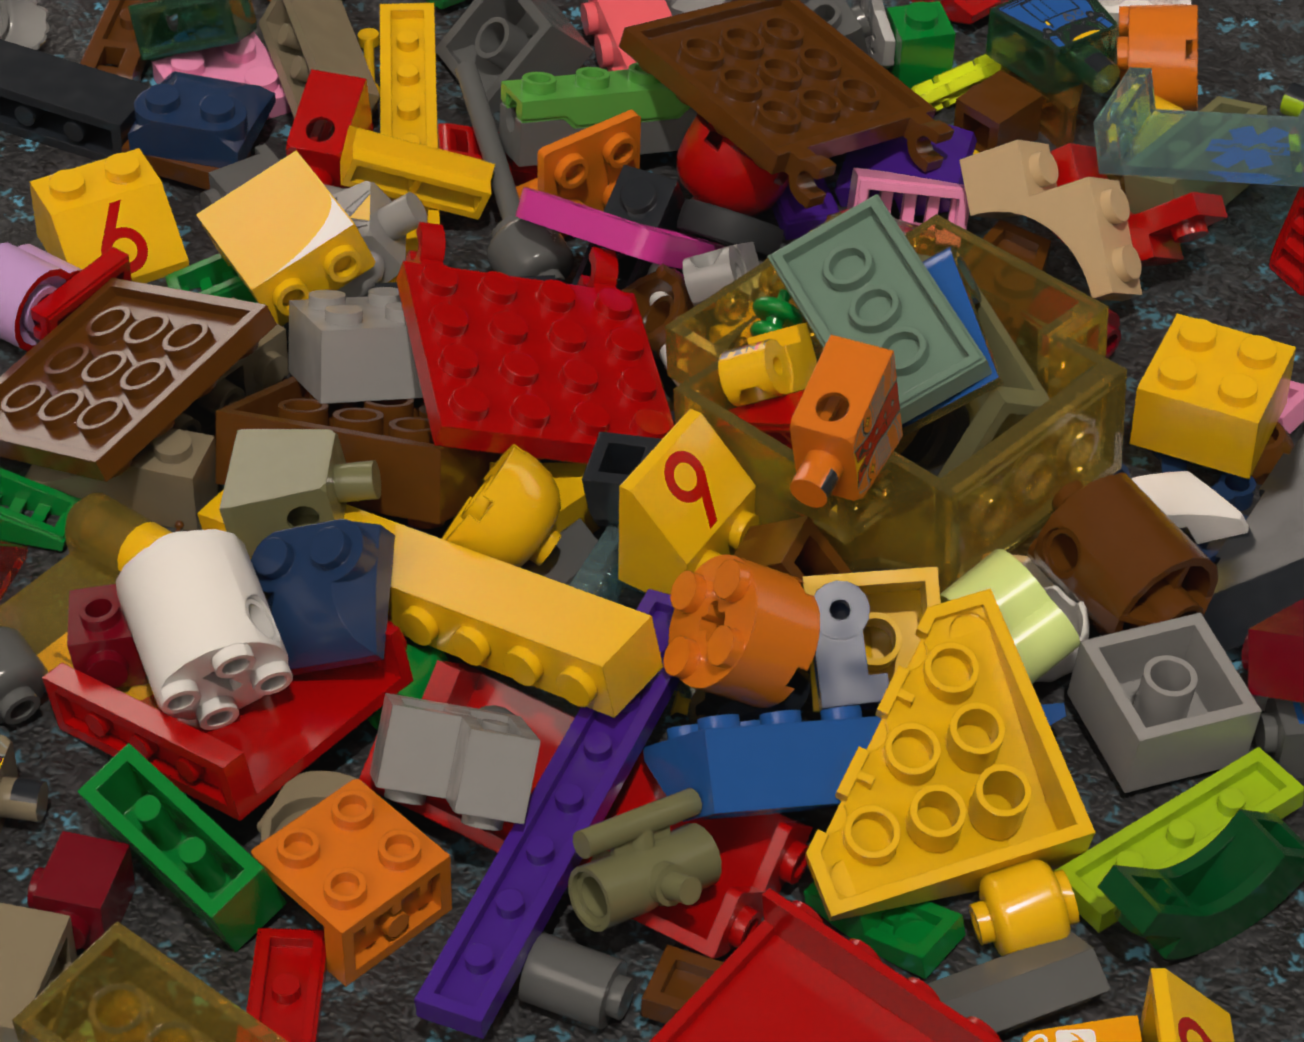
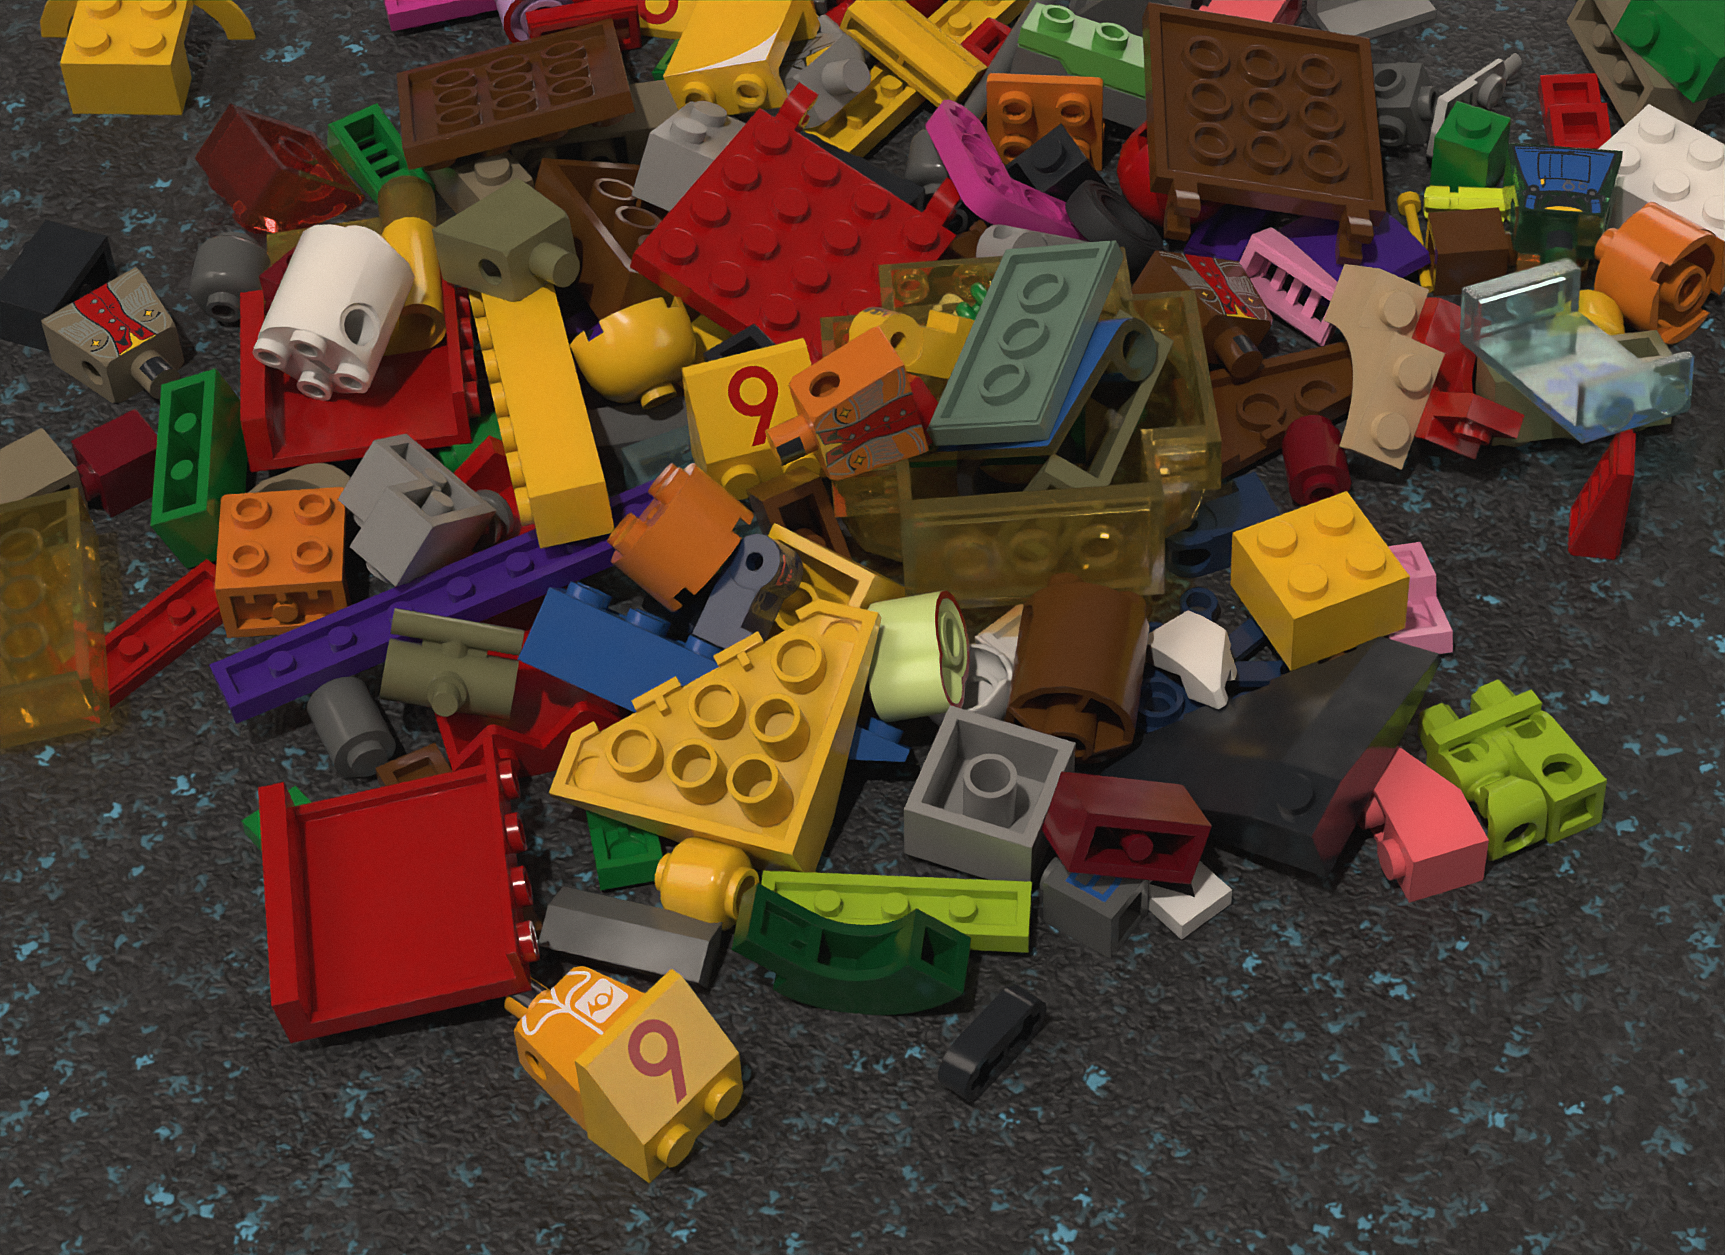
camera: 45 degrees right, 5 degrees up
(328, 591) = (442, 335): dark blue slope -> none

